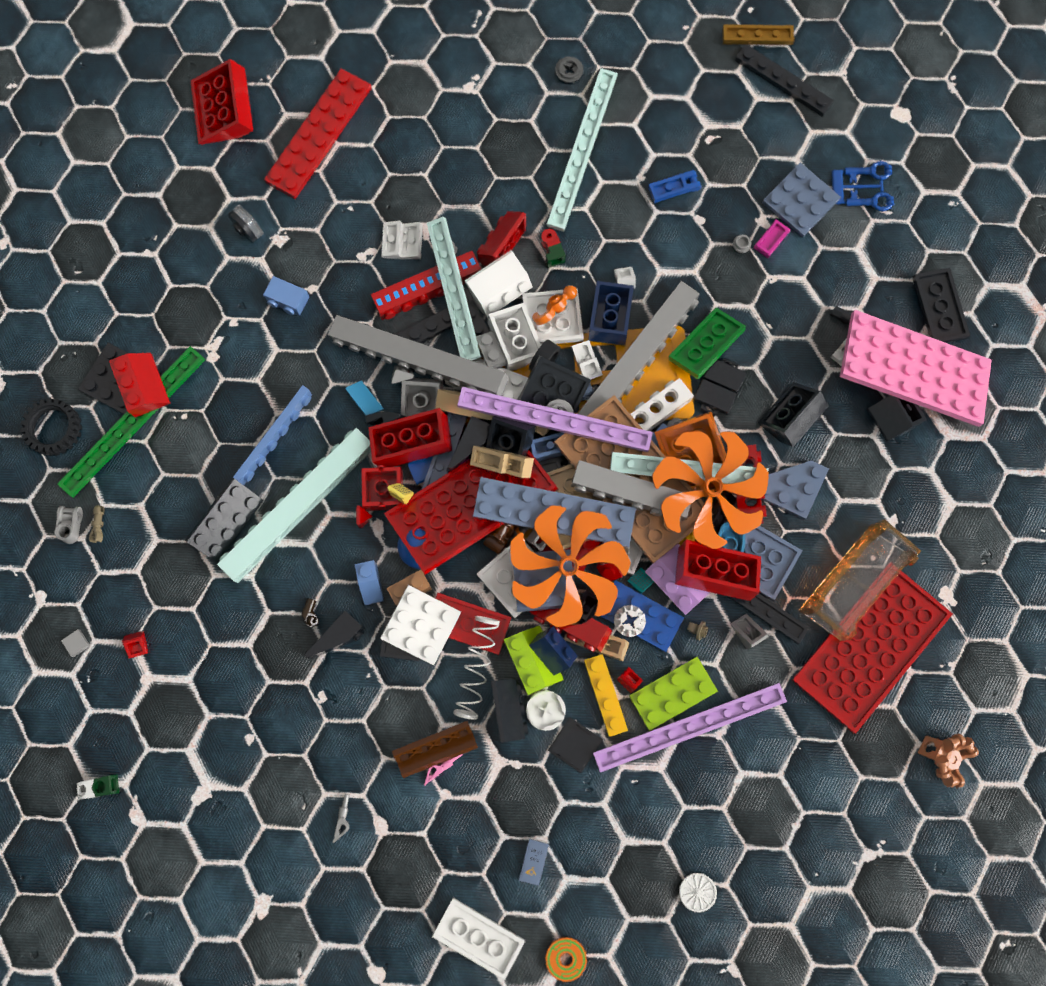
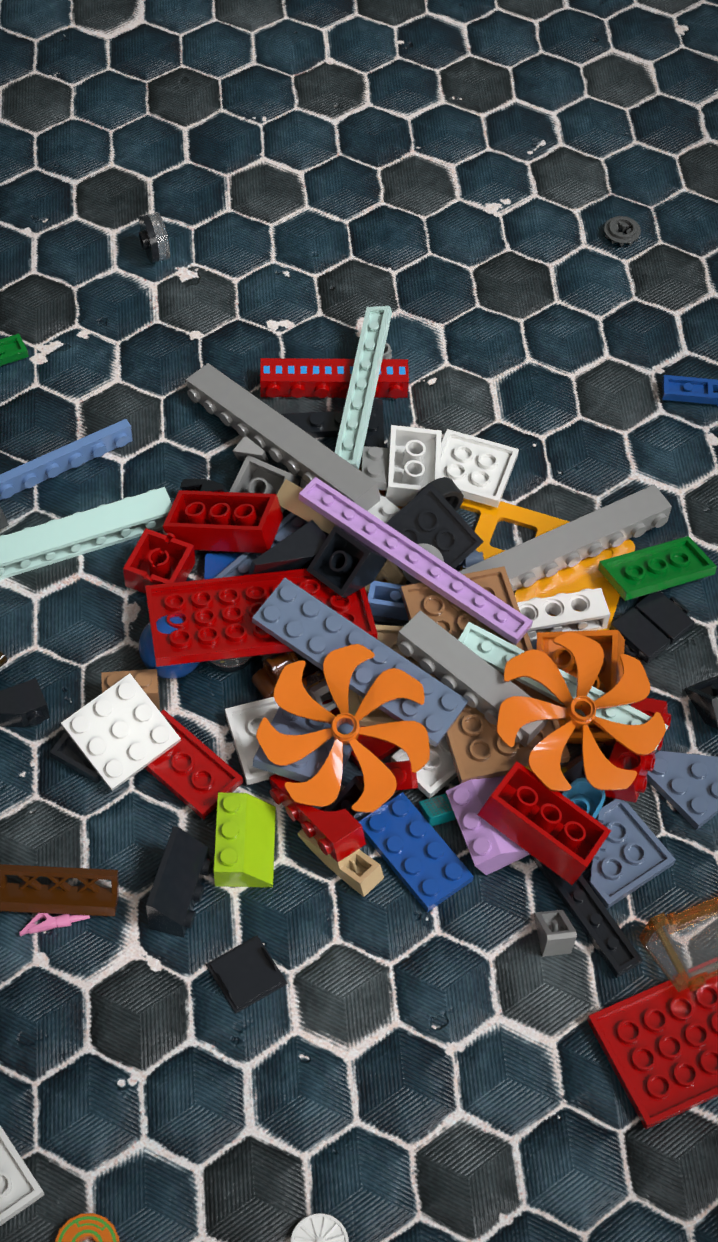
camera: 20 degrees right, 20 degrees down
(221, 103) = (196, 121): red slope -> none
(286, 296) = (160, 327): medium blue brick -> none
(318, 133) = (289, 188): red plate -> none
(362, 516) = (116, 588): red slope -> none
(363, 398) = (190, 462): dark azure slope -> none
(369, 582) = (85, 663): medium blue slope -> none
(400, 492) = (177, 569): light yellow slope -> none
(402, 240) = (329, 325): white slope -> none
(471, 714) = (213, 763): white piece -> none
(498, 284) = (422, 401): white slope -> none
(502, 462) = (322, 580): tan slope -> none
(503, 238) = (451, 366): red slope -> none
(534, 862) = (111, 1096): sand blue tile -> none
(545, 710) = (229, 912): white tile -> none
(551, 242) = (509, 403): leg -> none
(553, 650) = (276, 835): dark blue brick -> none
(555, 305) = (483, 450): orange piece -> none
(582, 150) = (596, 314): light aqua plate -> none
(586, 360) = (491, 528): white slope -> none
(605, 695) = (319, 929): yellow plate -> none
(611, 313) = (547, 487): dark blue brick -> none
(625, 276) = (585, 465): white slope -> none
(627, 629) = (387, 852): white gear -> none
(629, 680) = (361, 923): red slope -> none
(673, 693) = (412, 966): lime plate -> none
(689, 727) = (414, 1016): lavender plate -> none
(700, 630) = (486, 899): dark tan plate -> none

